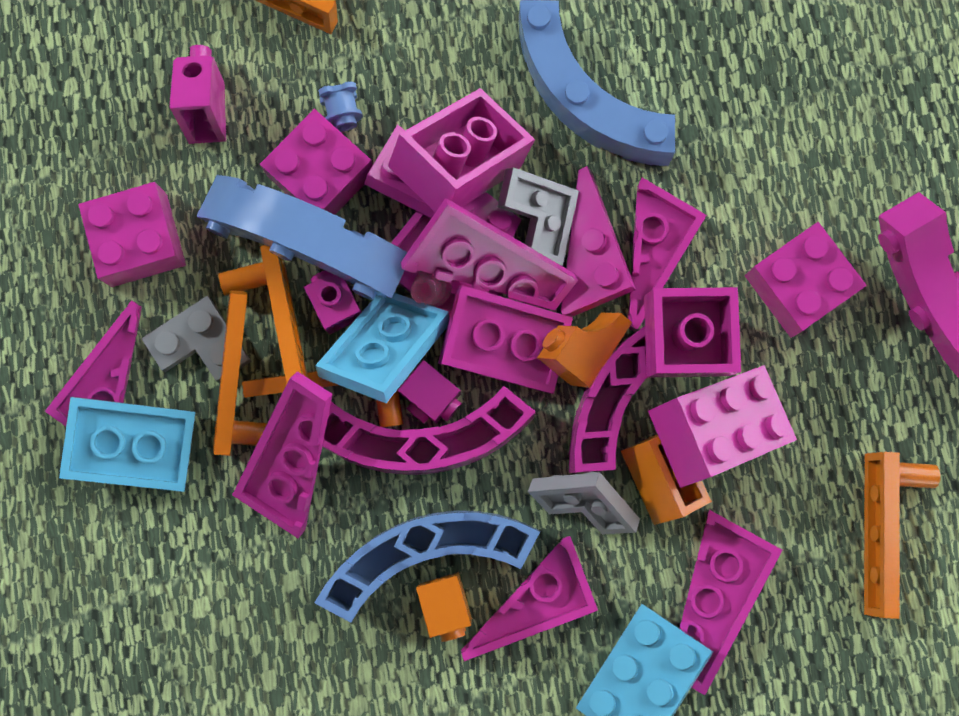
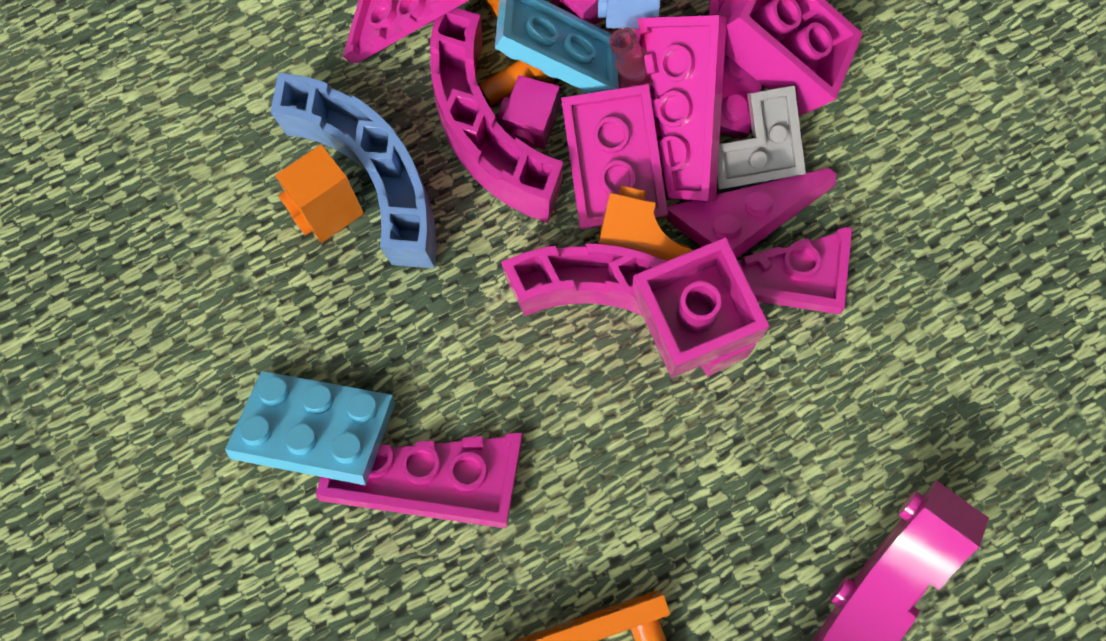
camera: 70 degrees right, 10 degrees down
(545, 599) = (367, 303): dark pink wing -> none
(580, 102) = (893, 166): medium blue brick -> none
(586, 494) = (484, 288): light grey plate -> none
(659, 485) = (538, 365): orange brick -> none
(722, 426) = (616, 397): brick -> none
(805, 279) = (824, 439): dark pink brick -> none

